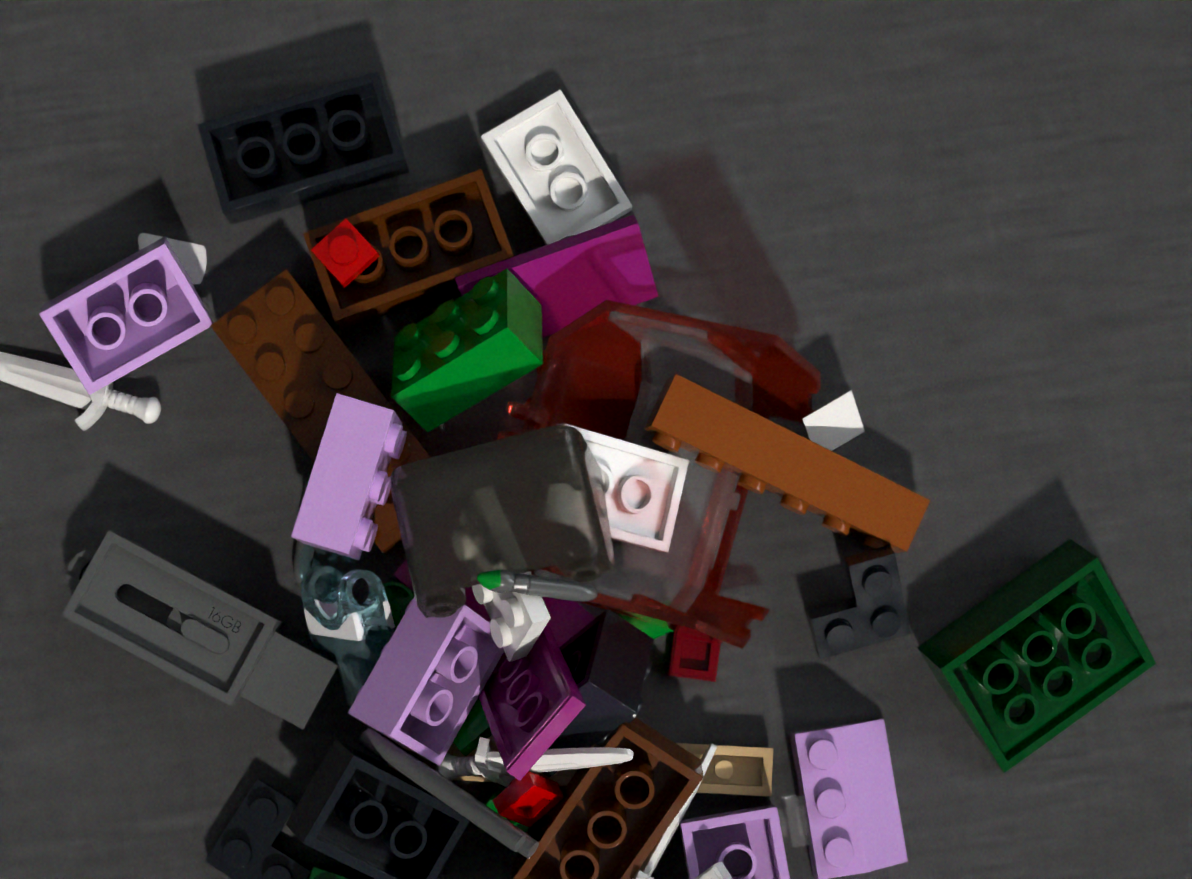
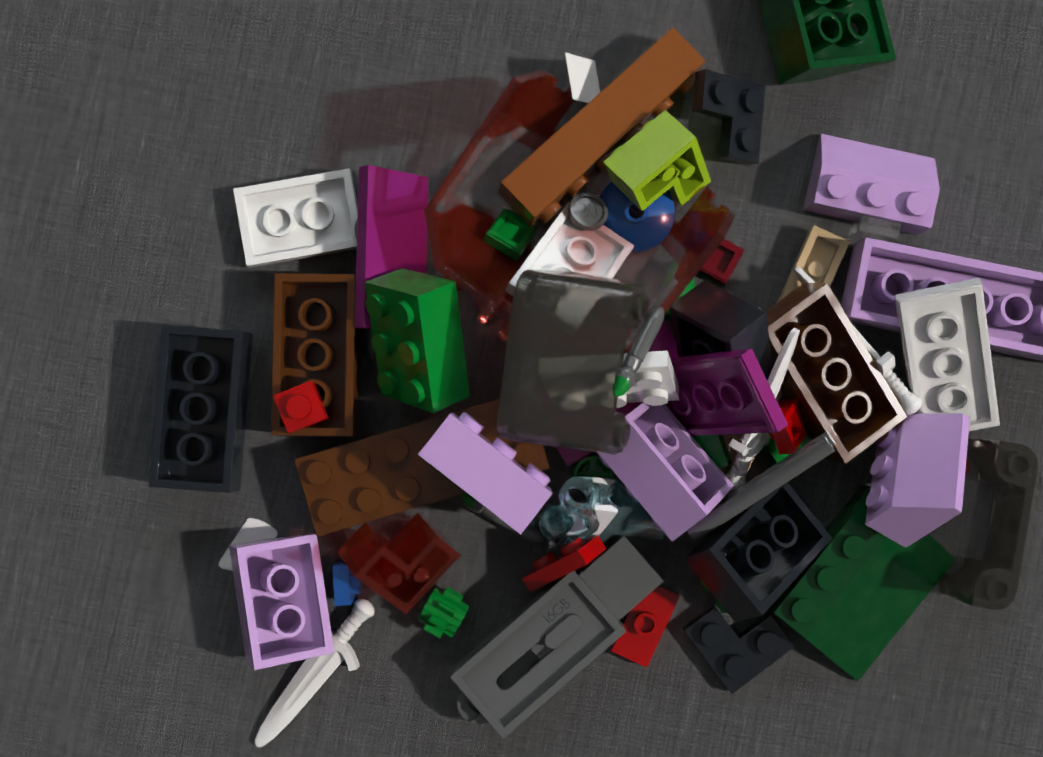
camera: 70 degrees left, 5 degrees up
(171, 378) = (345, 585): none -> blue plate
(177, 498) = (443, 612): none -> green gear
(210, 433) = (401, 567): none -> clear red brick
(247, 732) = (645, 626): none -> red plate
(294, 616) = (572, 557): none -> red plate
(627, 409) = (510, 234): none -> green tile
(685, 485) = (587, 211): none -> dark grey piece
(729, 554) = (641, 232): none -> blue dish
(769, 538) = (659, 160): none -> lime brick

